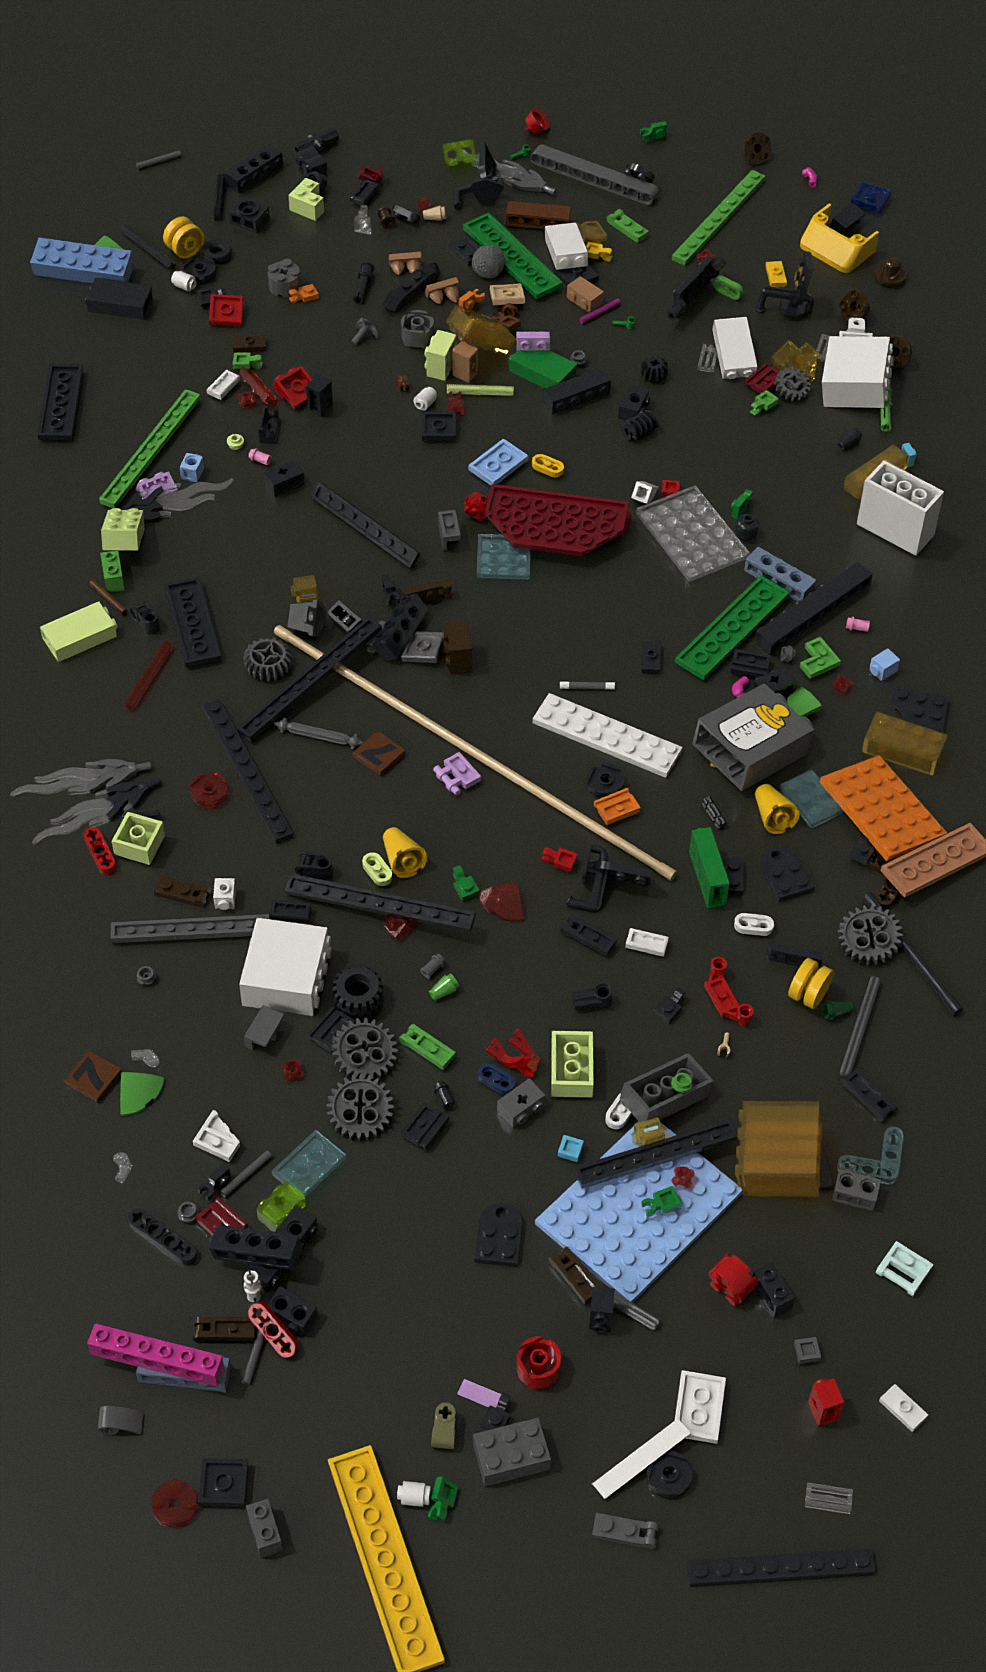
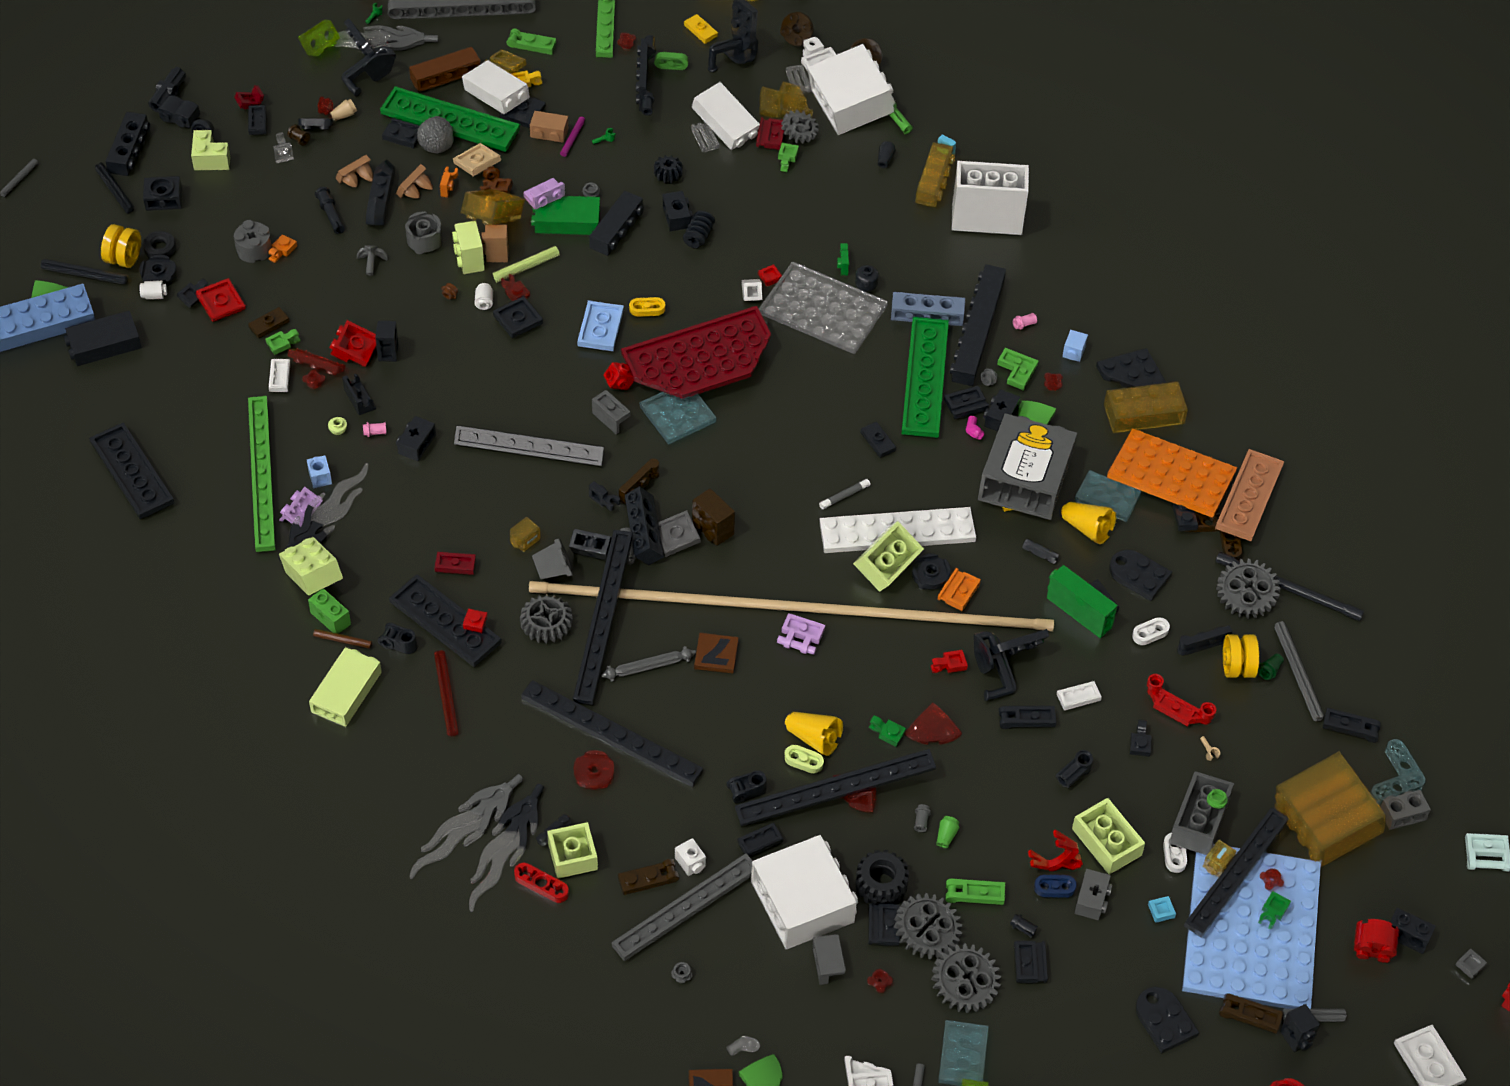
camera: 35 degrees left, 0 degrees up
(211, 631) = (475, 620): none -> red plate
(235, 583) = (455, 563): none -> dark red plate
(575, 748) = (888, 556): none -> yellowish green brick

